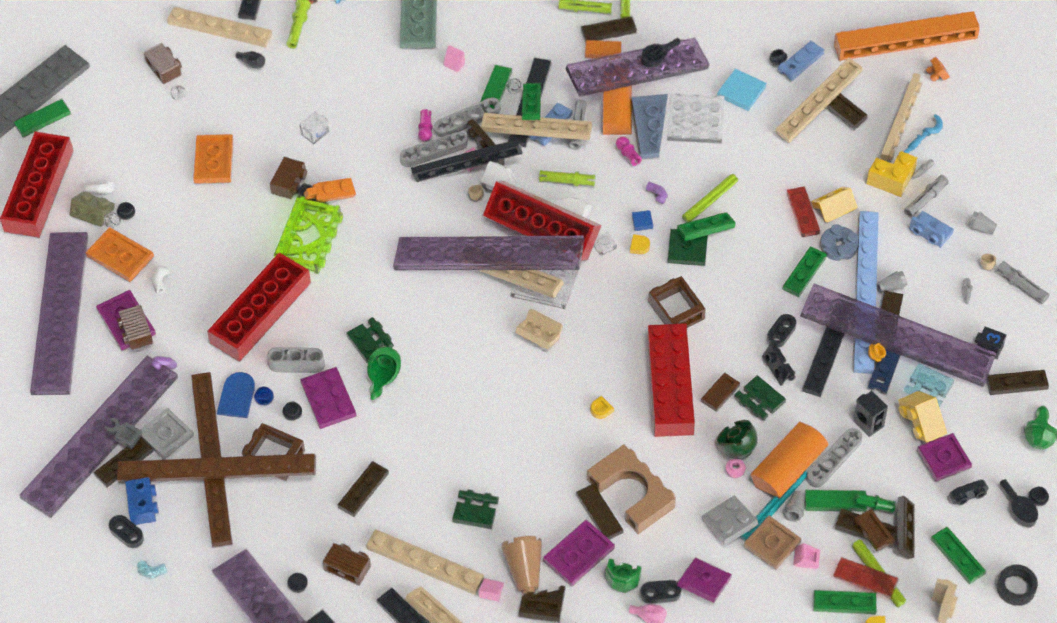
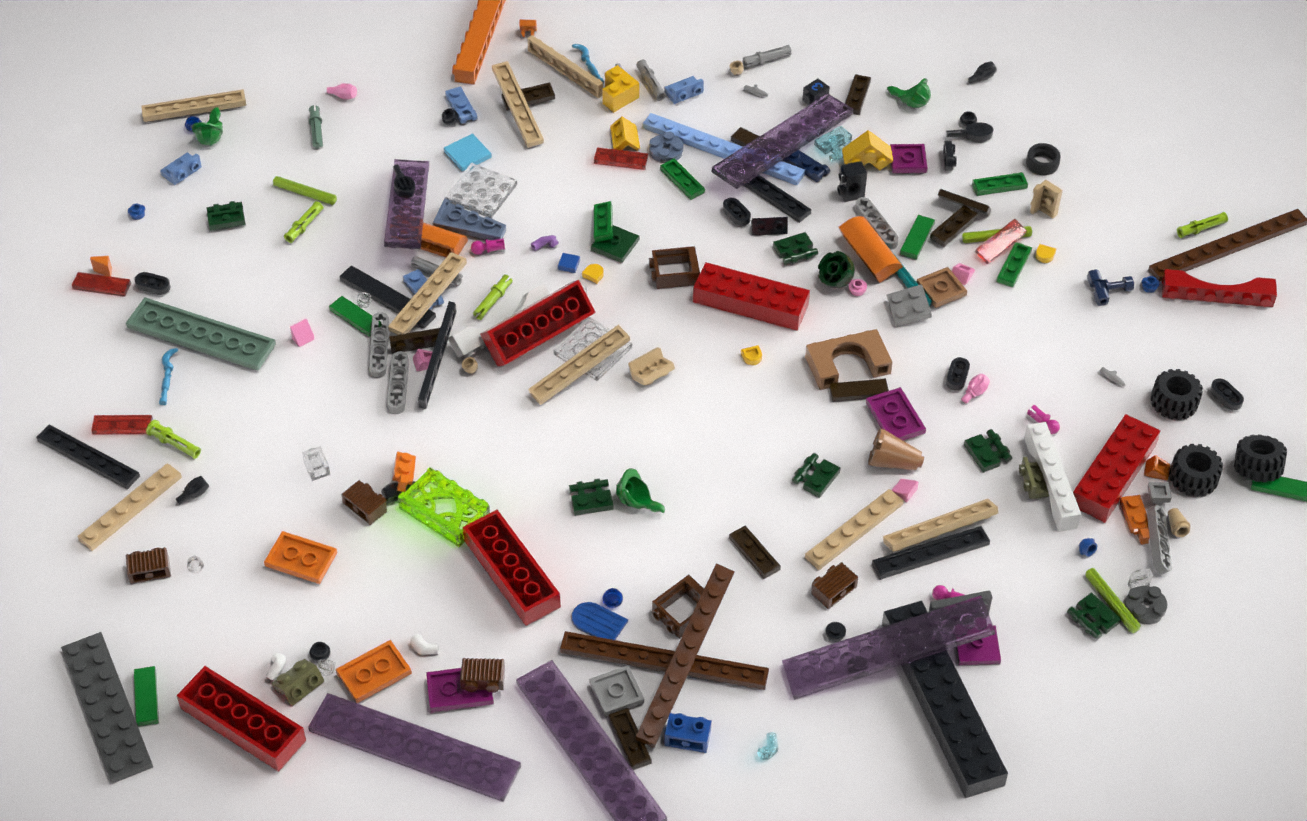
camera: 70 degrees left, 5 degrees down
(126, 434) = (605, 720): dark grey plate -> none
(127, 532) = (714, 755): black plate -> none
(166, 361) = (533, 666): medium lavender arm -> none
(292, 411) = (641, 580): black plate -> none
(304, 363) = (582, 568): light grey beam -> none
(328, 397) = (639, 549): magenta plate -> none
(425, 125) = (377, 381): dark pink pin -> none
(489, 253) = (551, 373): clear purple plate -> none
(531, 101) = (397, 288): green tile -> none
(543, 605) = (938, 456): dark brown wing -> none
(598, 49) = (361, 227): orange tile -> none
(609, 29) = (340, 216): dark brown tile -> none
(622, 576) = (935, 392): green hair -> none
(704, 580) = (960, 340): magenta plate -> none
(711, 197) = (572, 211): lime axle -> none
(720, 392) = (775, 270): reddish brown tile -> none
(795, 507) = (913, 261): light grey cone -> none
(874, 530) = (961, 219): reddish brown tile -> none
(875, 502) = (934, 211): green axle -> none
(876, 352) = (793, 159): light orange plate -> none
(893, 282) = (725, 127): light grey cone -> none
(981, 222) = (695, 58): light grey cone -> none

